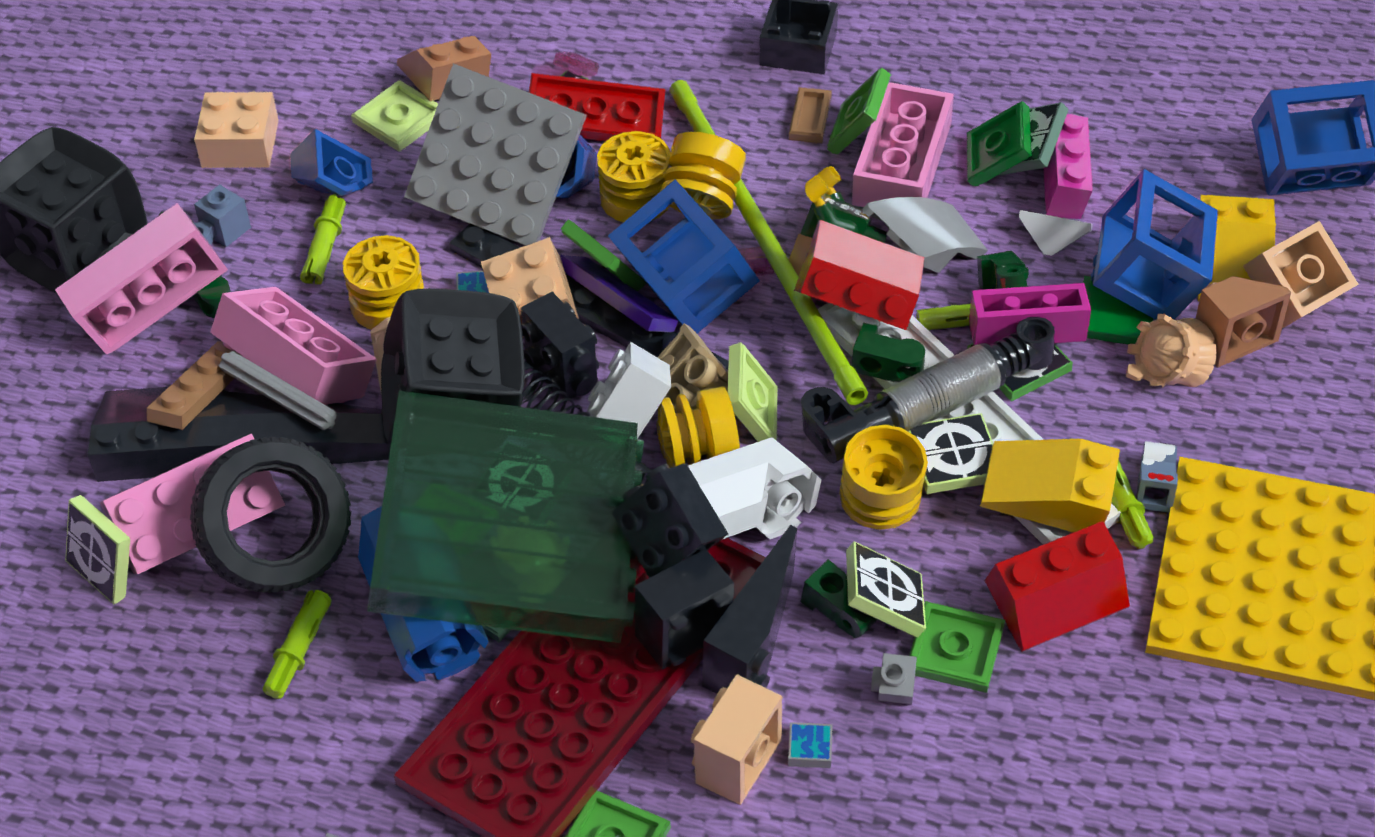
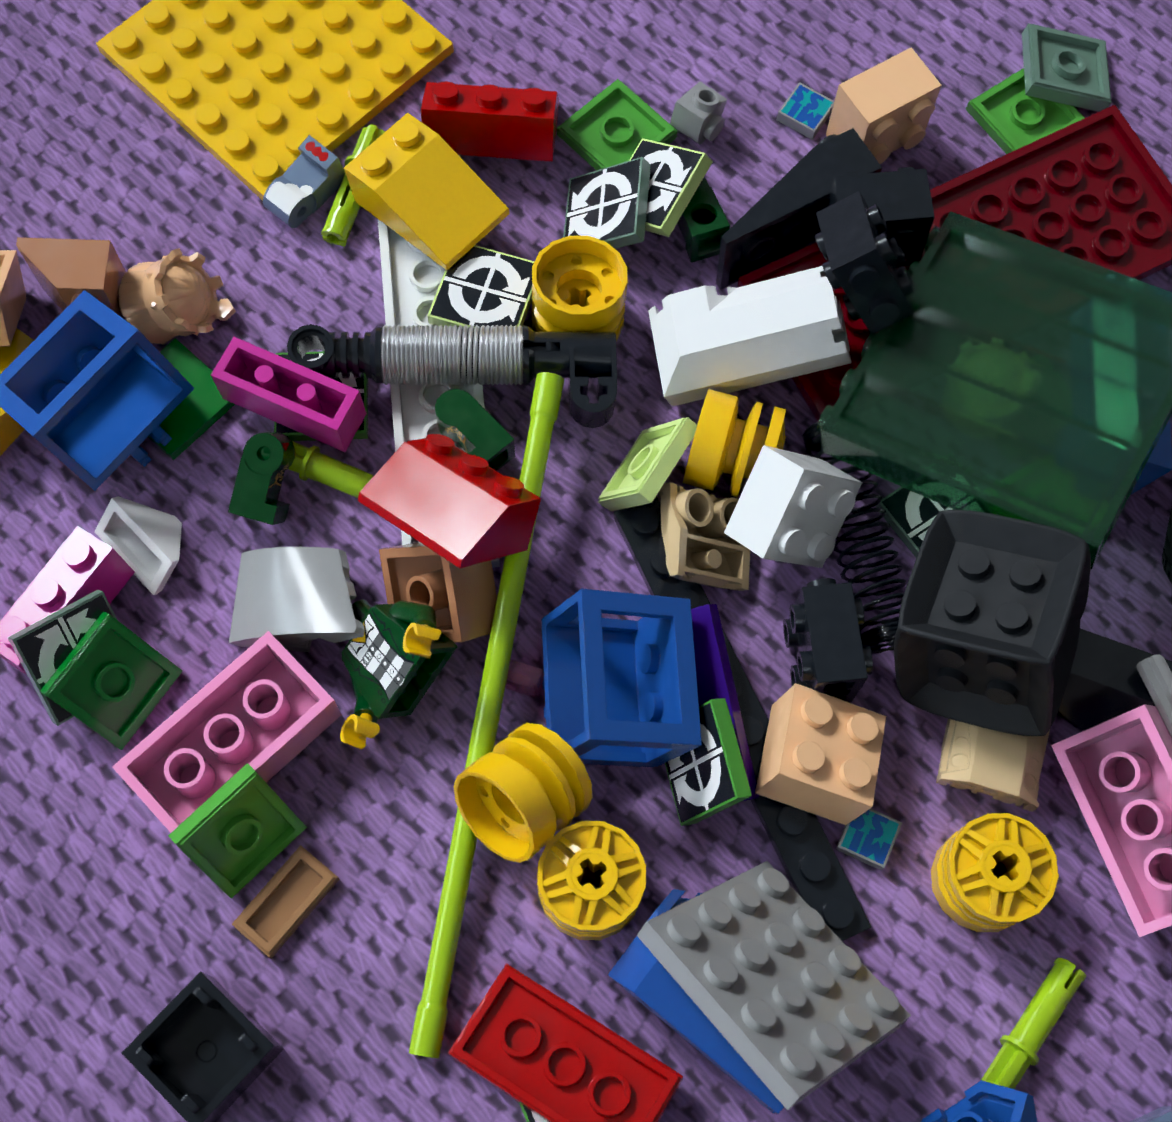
camera: 155 degrees left, 20 degrees up
(912, 560) = (610, 203): none -> tile

